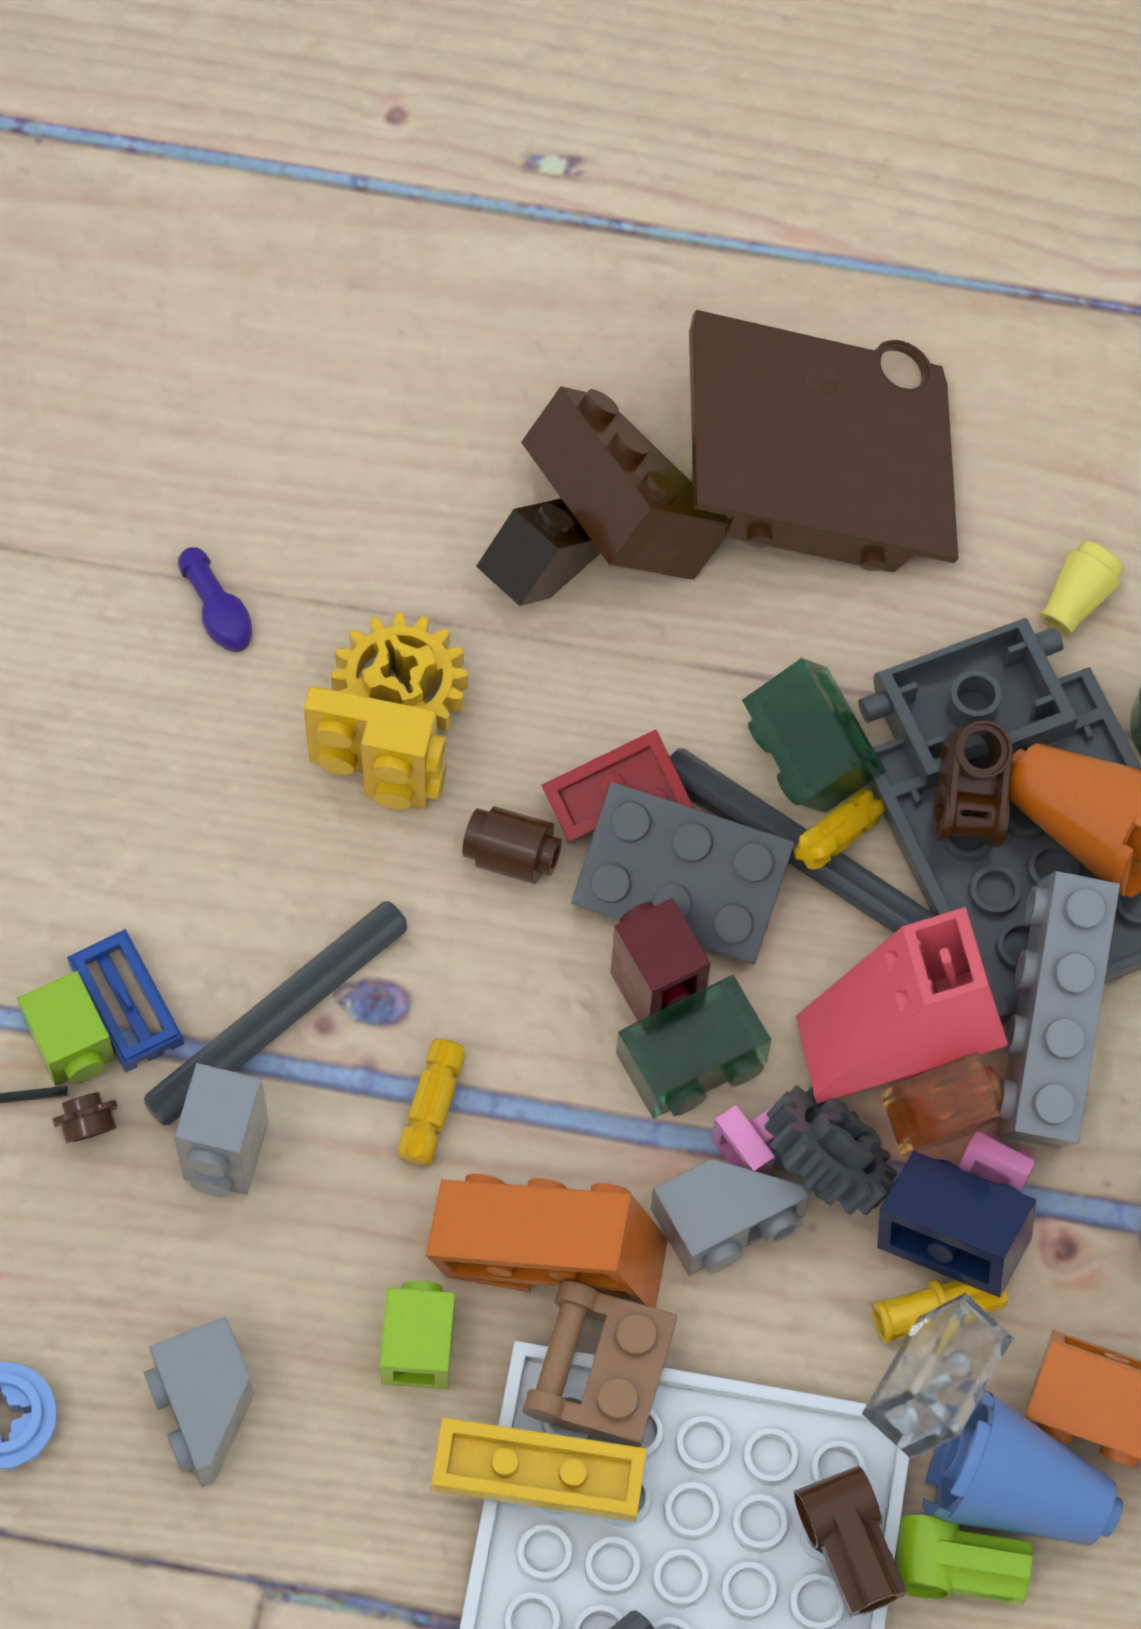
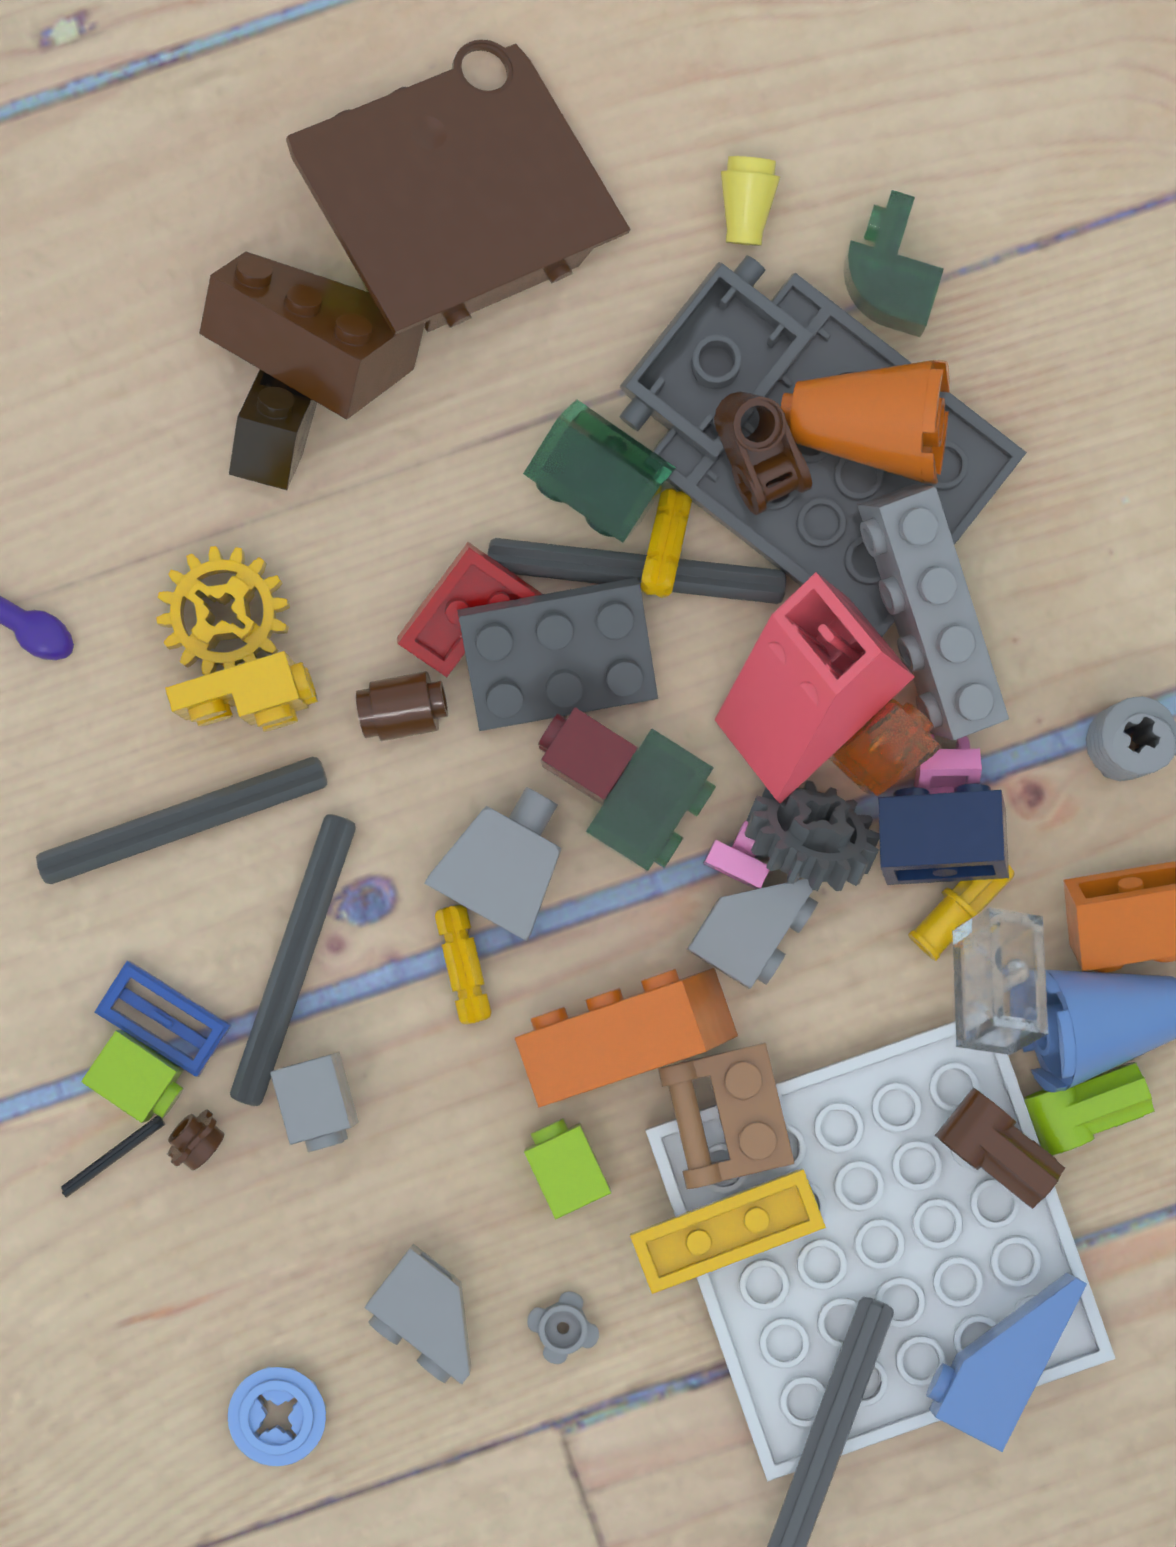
camera: 30 degrees left, 20 degrees up
(252, 837) = (181, 820): none -> dark grey axle
(314, 1472) = (580, 1332): none -> light grey plate
(520, 1029) = (502, 864): none -> light grey torso

